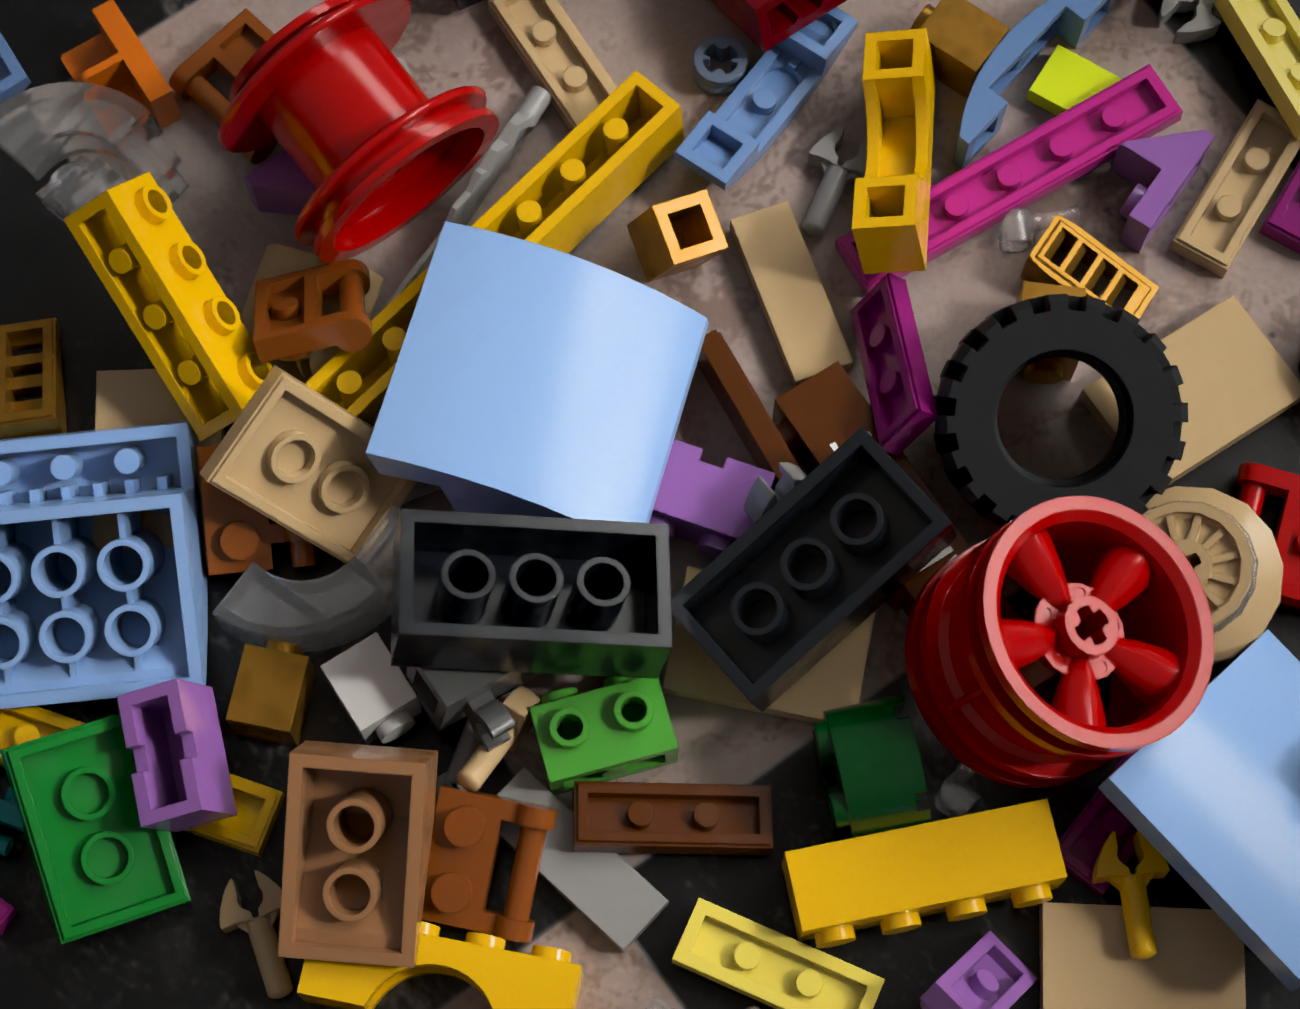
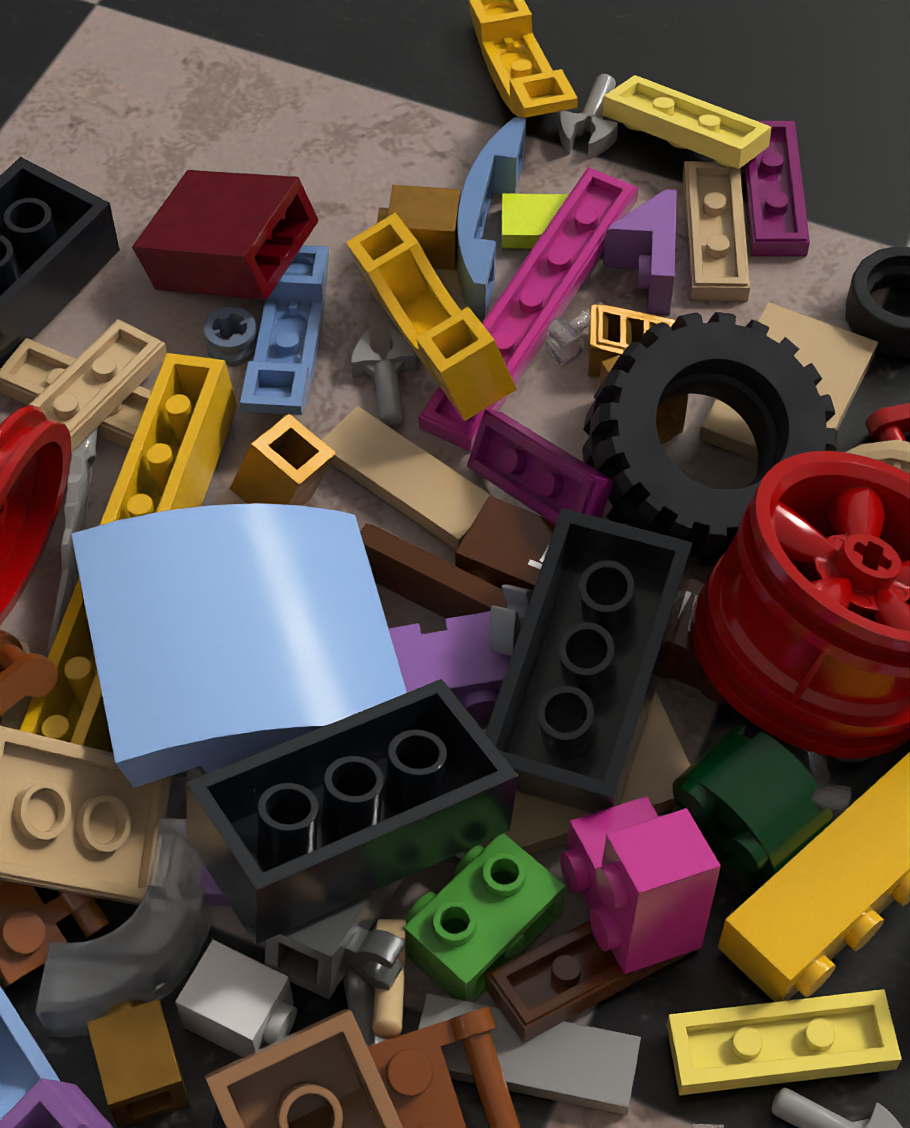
camera: 30 degrees left, 15 degrees down
(559, 61) = (100, 379): none -> tan tile
(734, 779) = (642, 880): none -> dark pink brick

